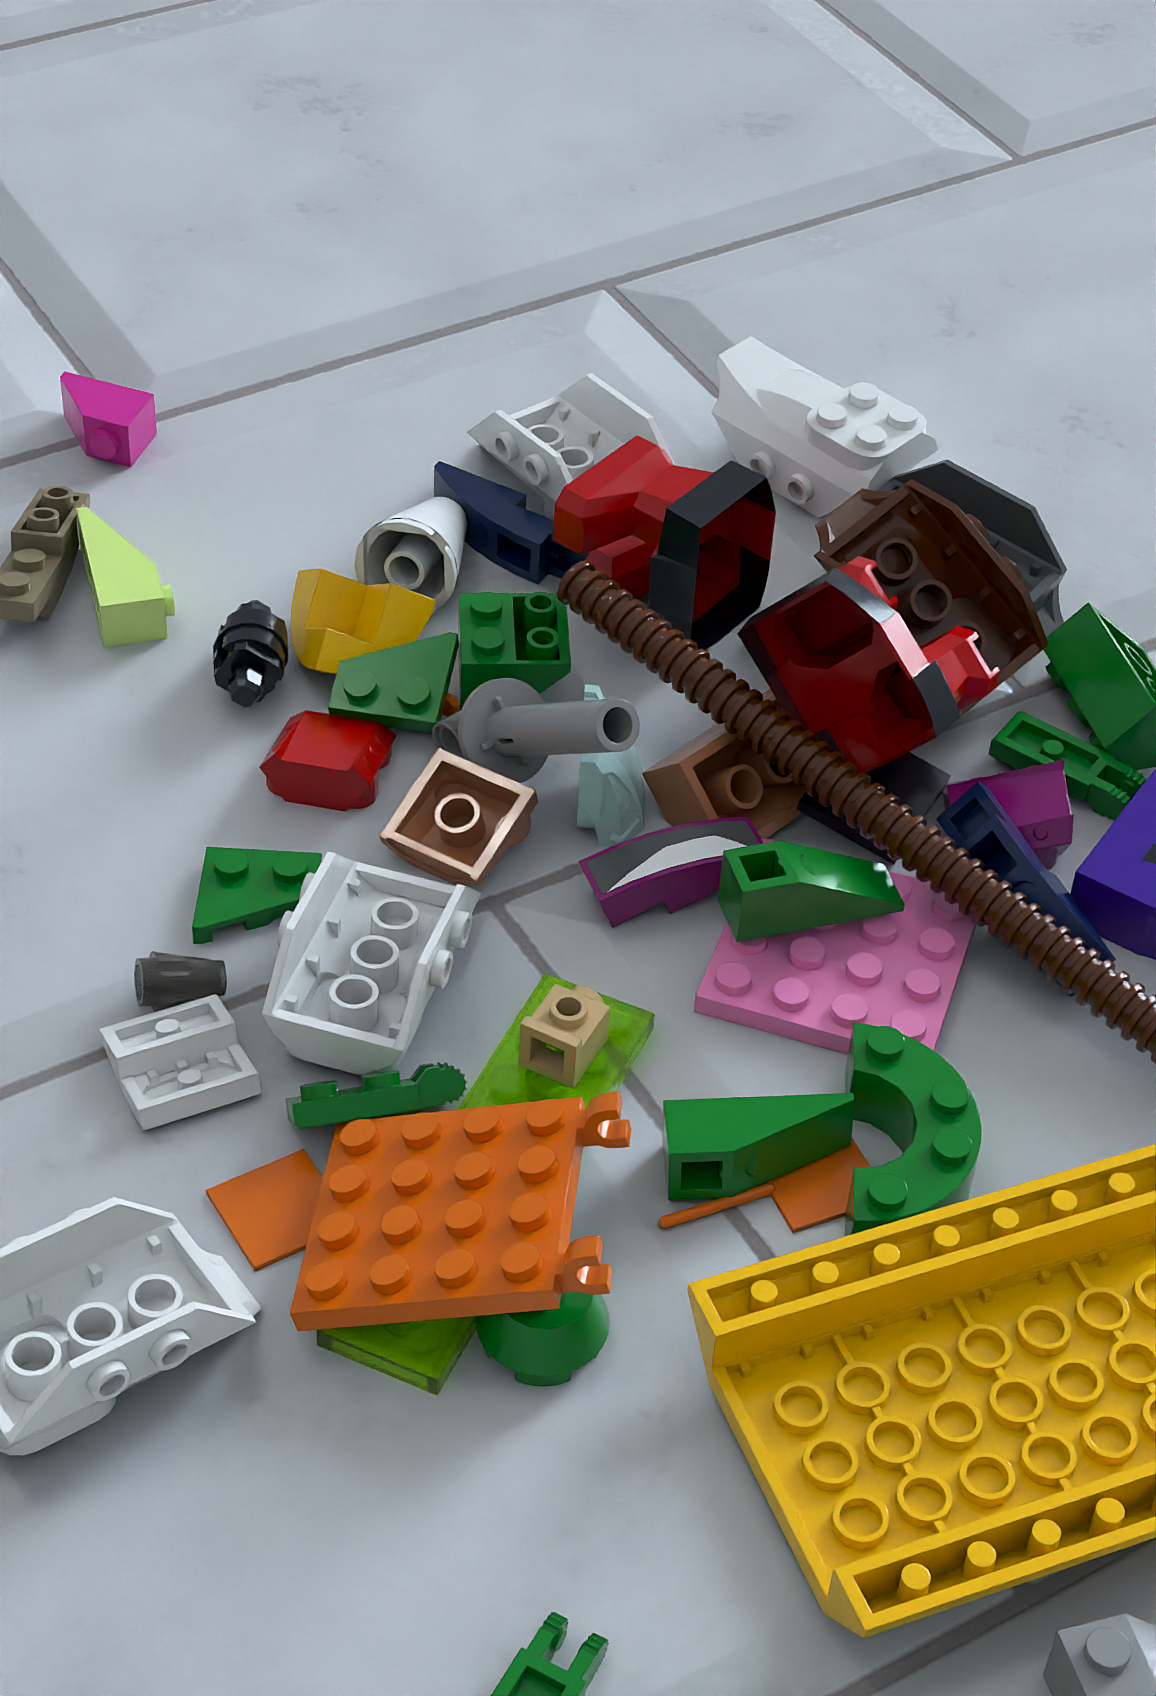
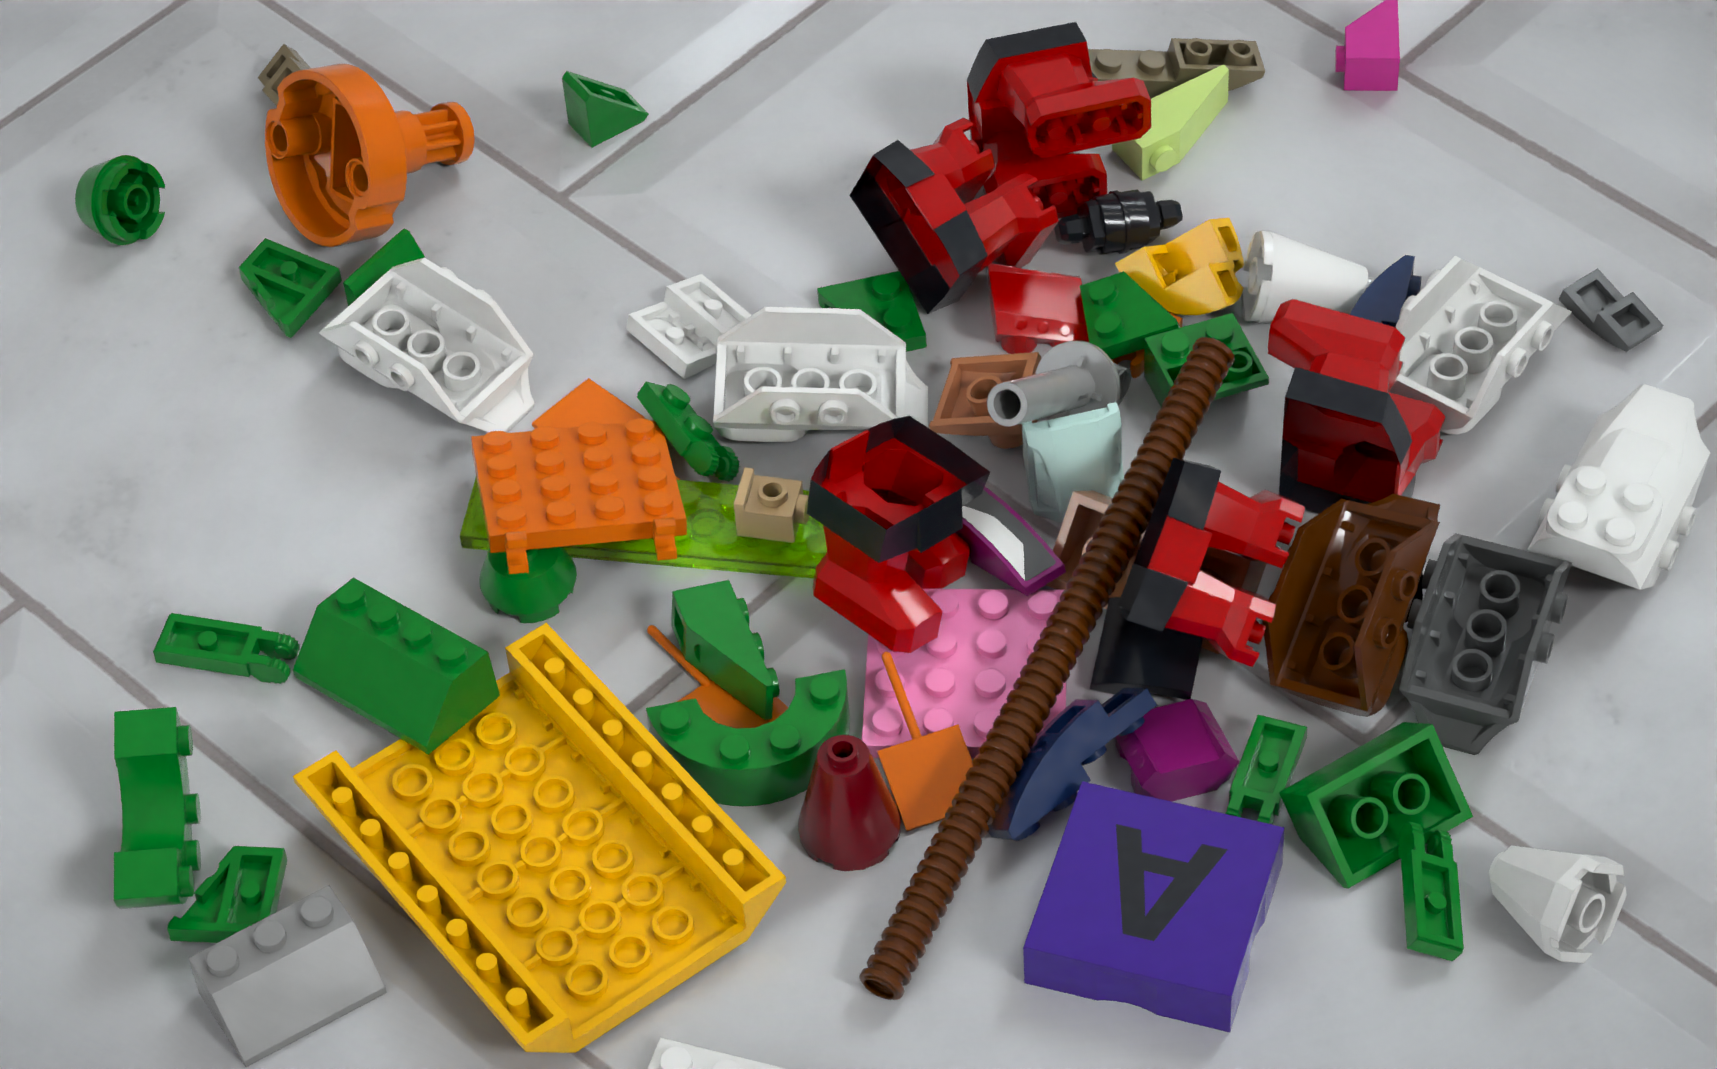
camera: 80 degrees right, 5 degrees up
(95, 599) = (1041, 102): none -> red piece
(175, 979) = (755, 288): clear smoke cone -> none
(201, 767) = (933, 227): none -> red piece
(525, 390) = (1608, 313): none -> dark grey slope
(672, 1488) = (394, 666): none -> green slope
(686, 897) = (891, 528): none -> red piece
(798, 888) = (975, 606): green slope -> none
(983, 1010) = (924, 770): none -> orange piece
(1037, 1081) = (847, 808): none -> dark red cone

